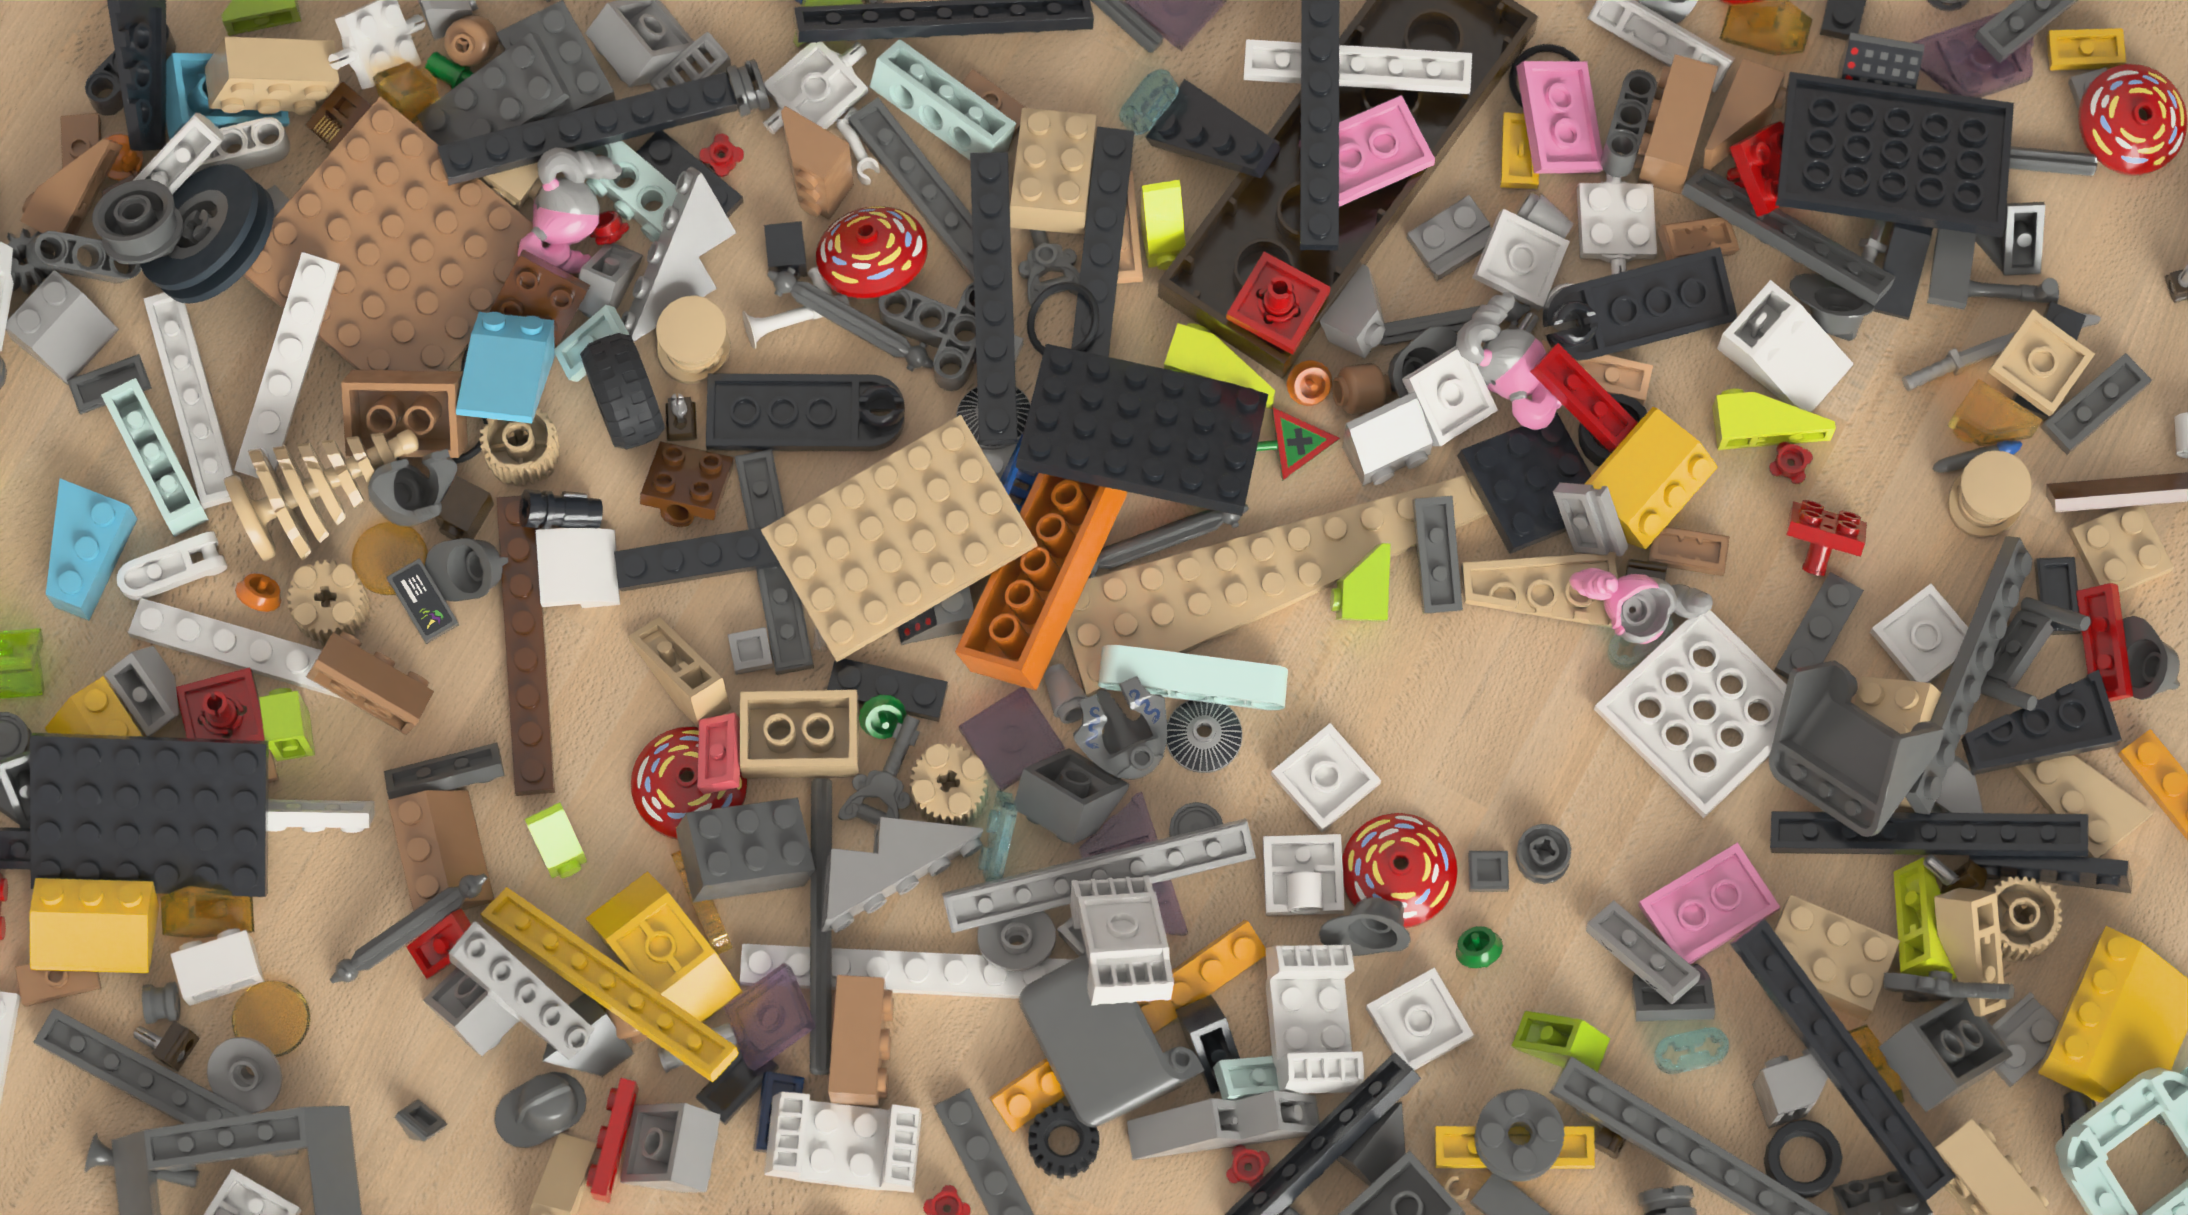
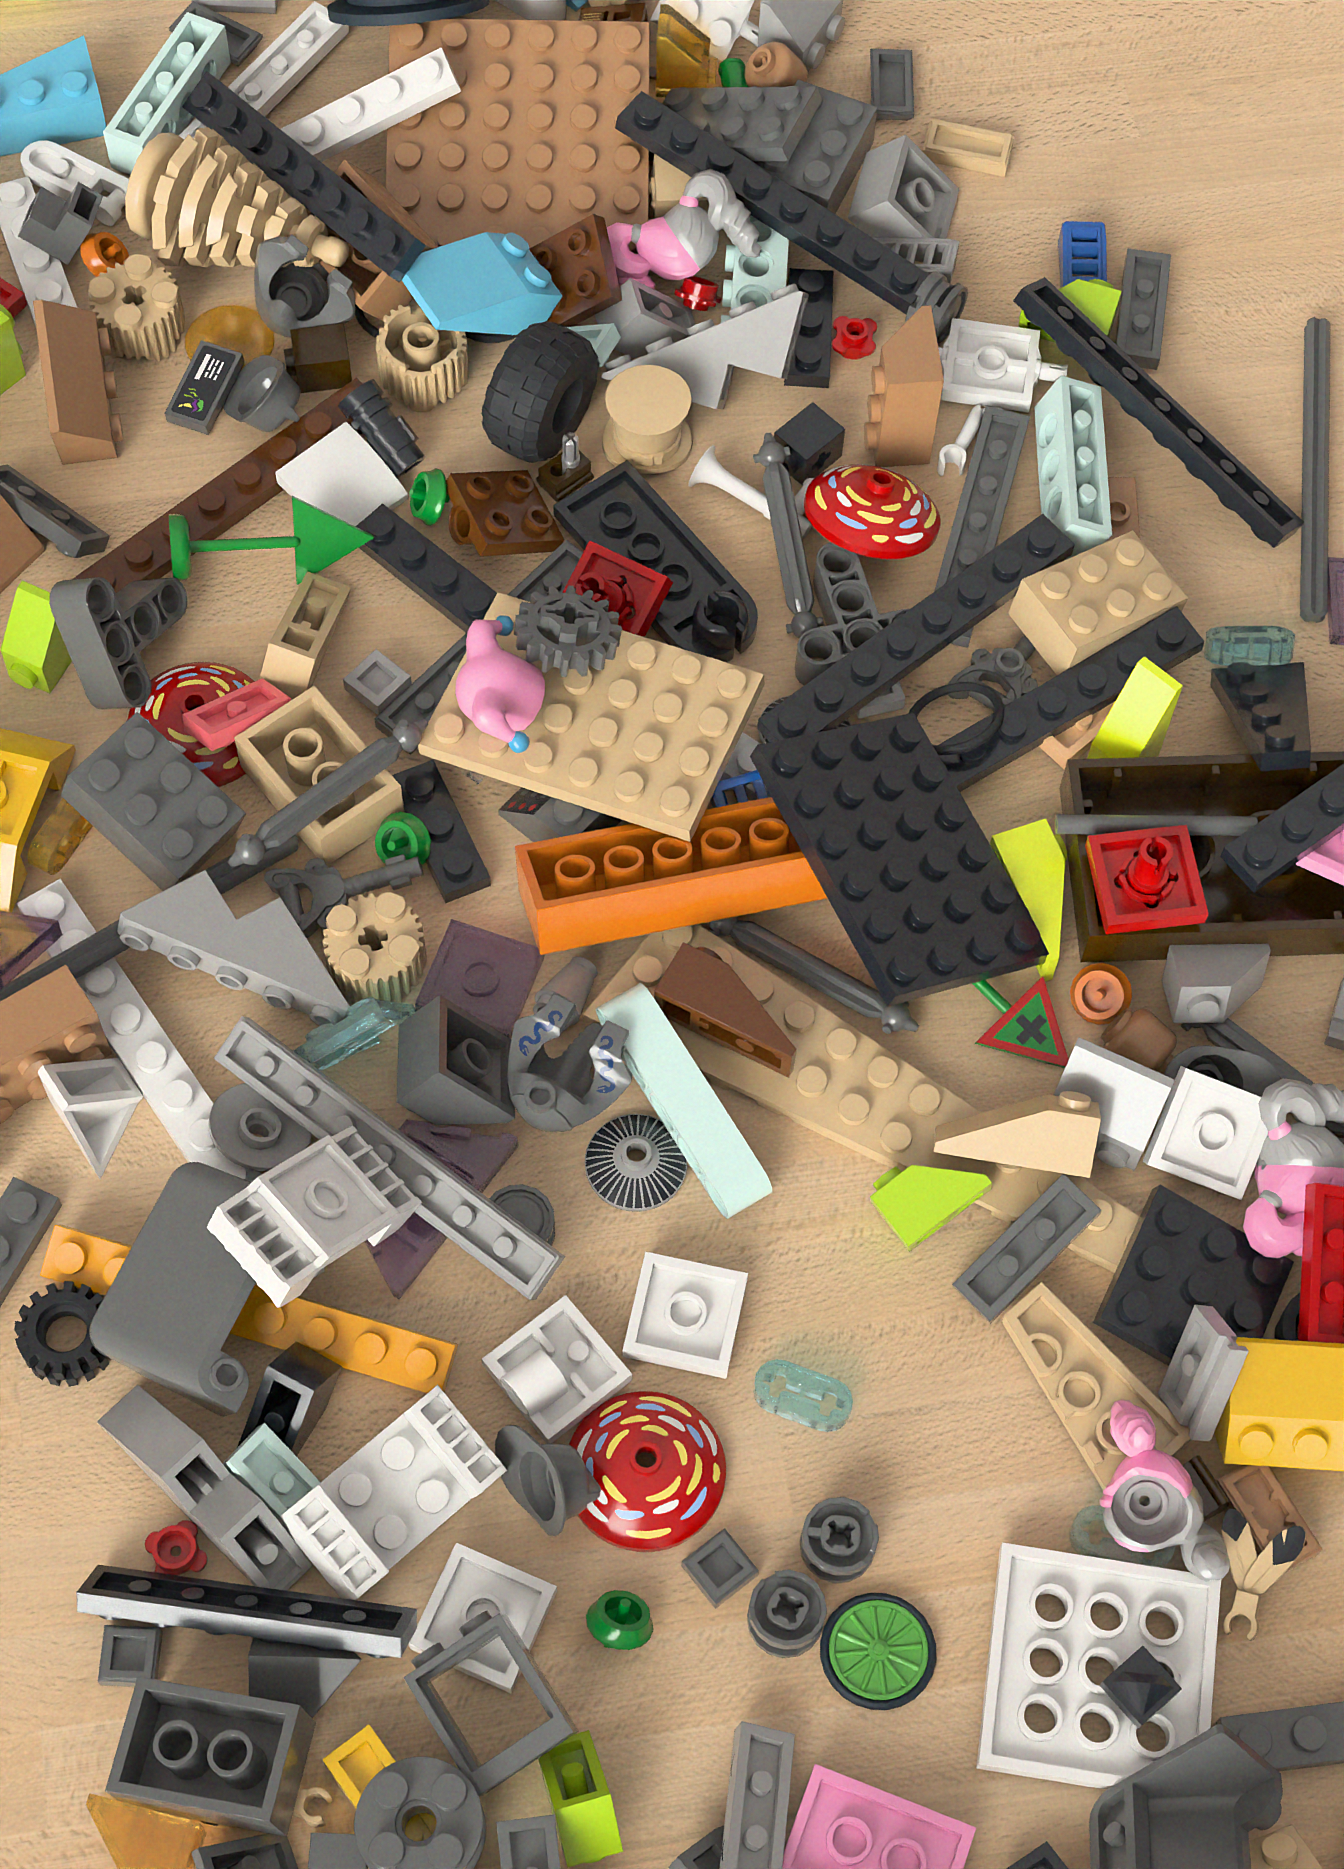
camera: 50 degrees right, 10 degrees down
(213, 603) = (60, 224): none -> dark grey piece
(321, 418) = (305, 177): none -> black plate
(593, 787) = (109, 631): none -> dark grey beam
(617, 615) = (317, 541): none -> green piece
(635, 518) = (429, 496): none -> green hat
(811, 465) = (603, 571): none -> red plate
(832, 736) = (327, 793): none -> dark grey wheel
(842, 510) = (567, 631): none -> dark grey gear
(848, 580) = (498, 687): none -> bright pink piece
(921, 1027) = (94, 1104): none -> white slope
(1154, 610) = (715, 1003): none -> reddish brown slope
(1244, 267) = (1120, 823): none -> dark grey piece
(1376, 497) = (1035, 1133): none -> slope
(1428, 756) = (798, 1407): none -> clear light blue beam
(1517, 1051) = (437, 1661): none -> dark grey window
(1524, 793) = (838, 1540): none -> dark grey wheel
(1600, 820) = (878, 1651): none -> bright green wheel
(1716, 583) = (1252, 1572): none -> tan piece
(1731, 695) = (1140, 1687): none -> black tile

